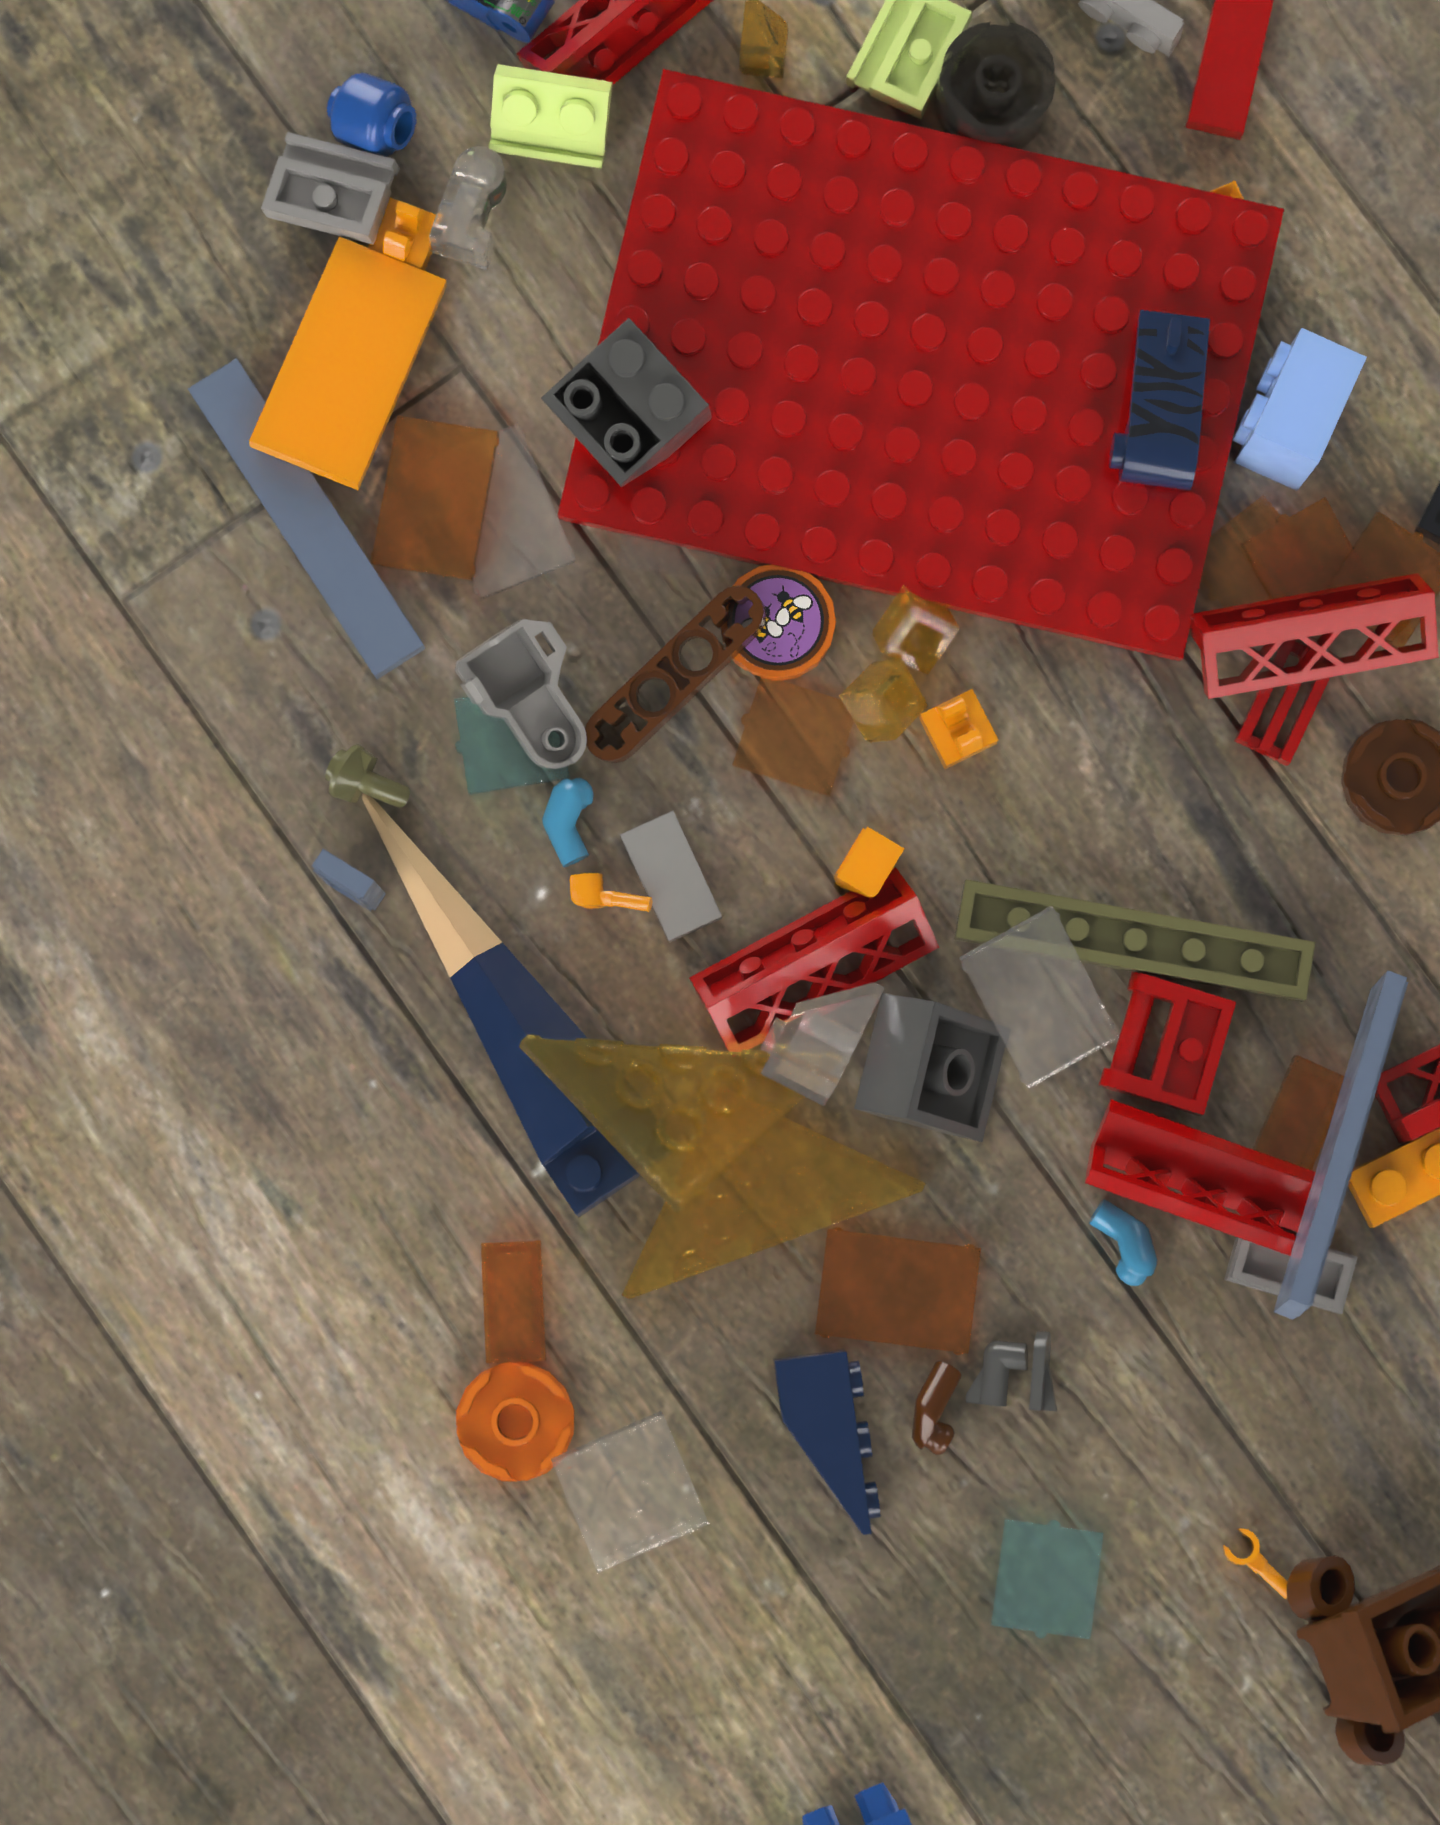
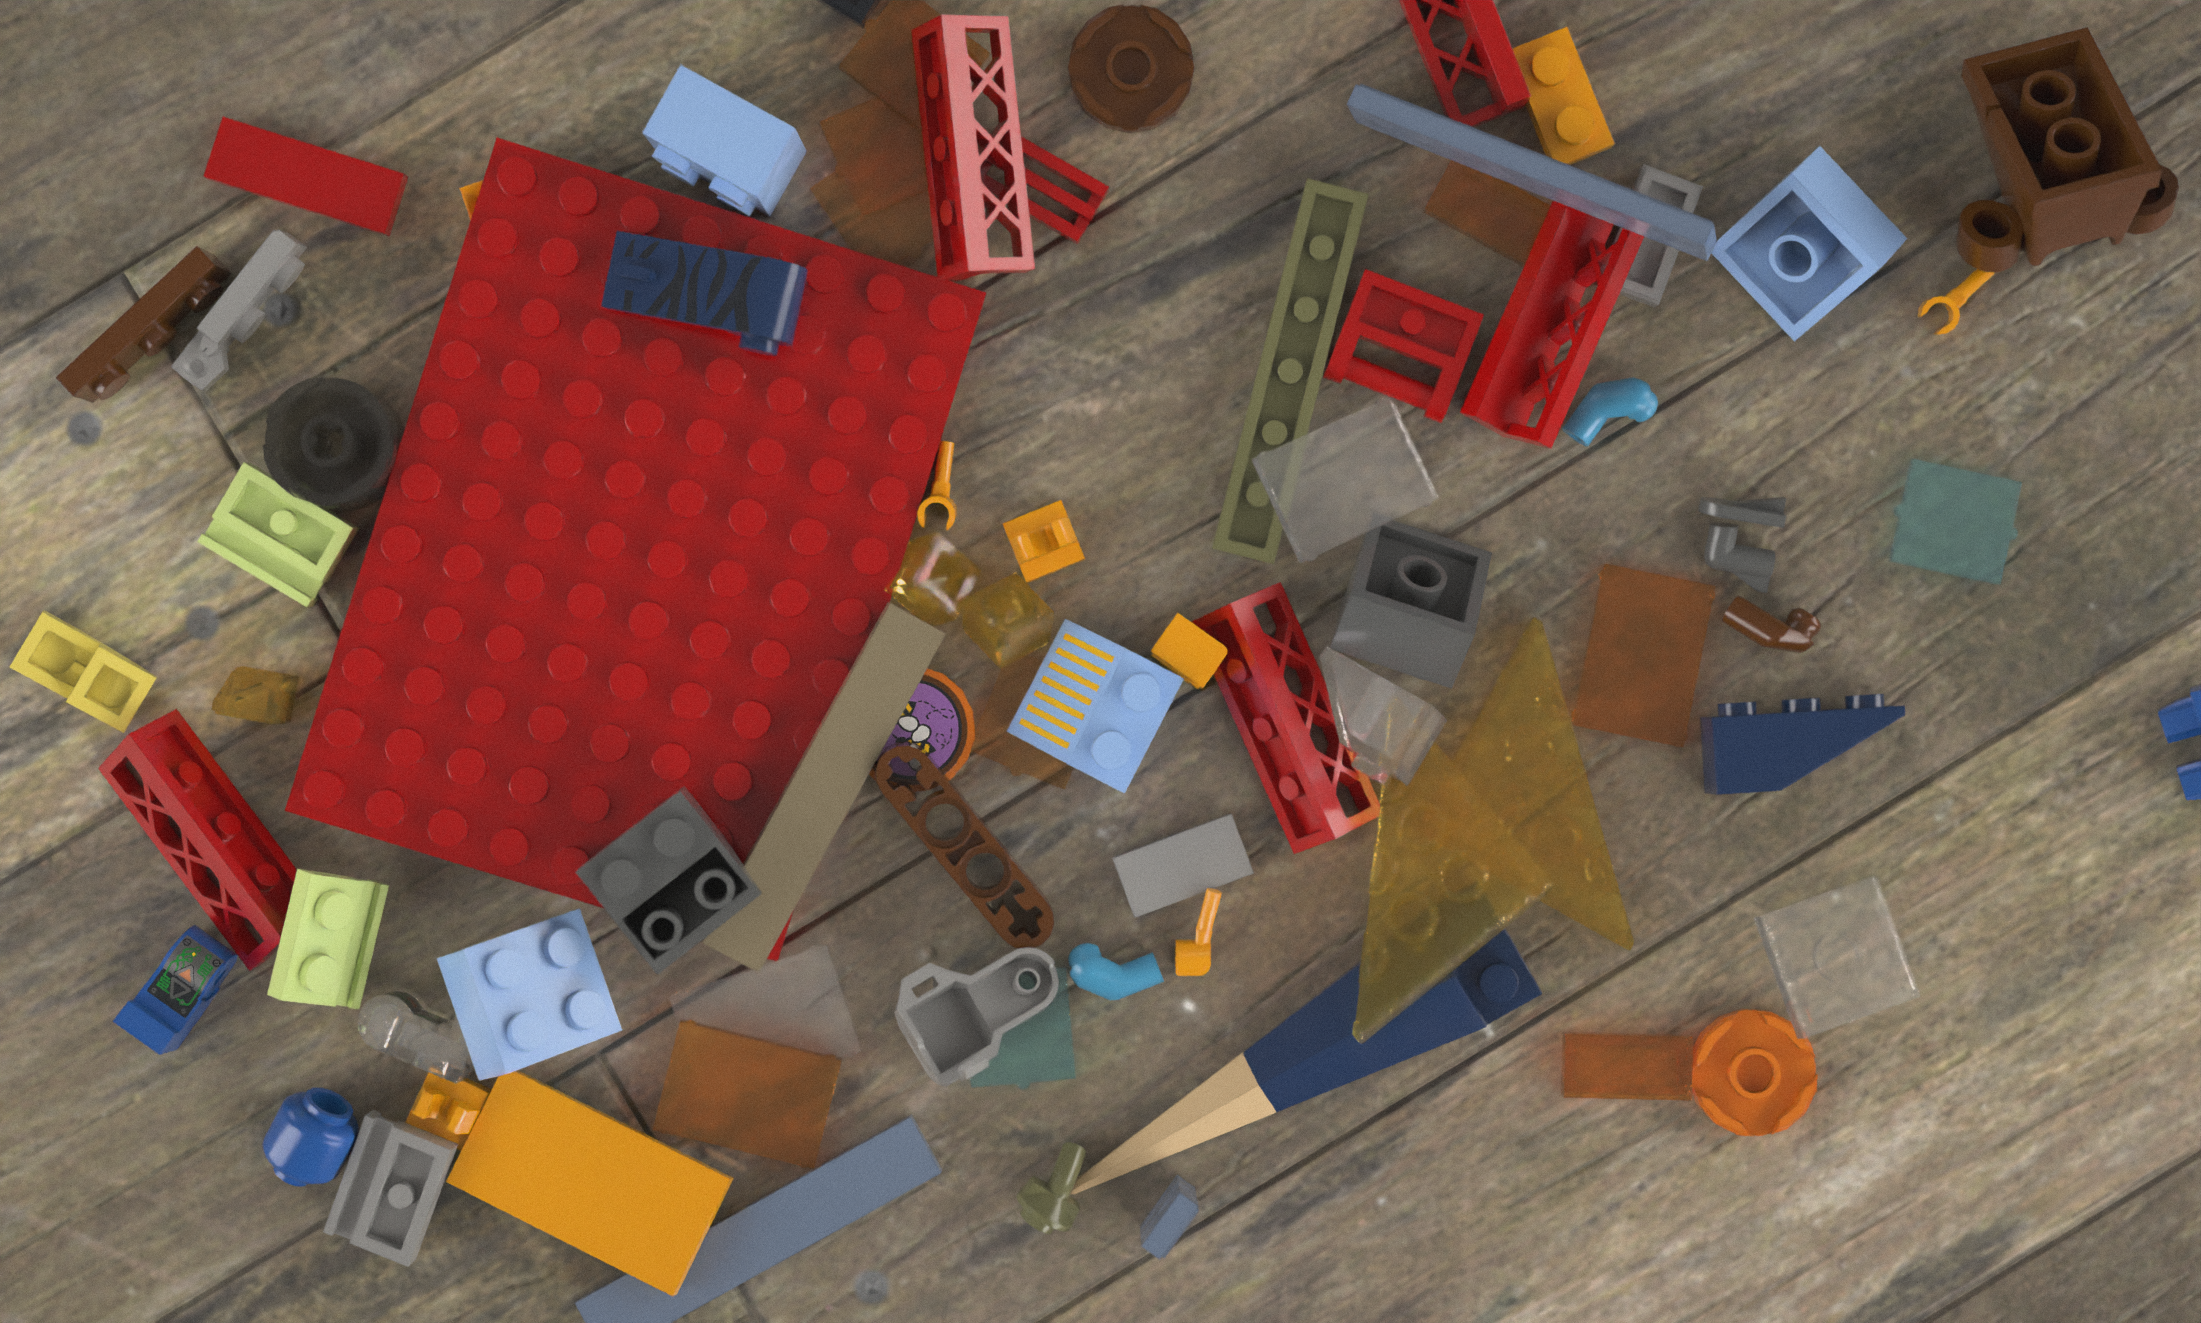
camera: 80 degrees left, 5 degrees up
(514, 292) = (529, 995): none -> light blue brick
(723, 543) = (828, 781): none -> dark tan tile
(812, 783) = (1095, 705): none -> light blue slope
(998, 632) = (941, 485): none -> light orange hand
(1298, 1415) = (1808, 244): none -> light blue slope

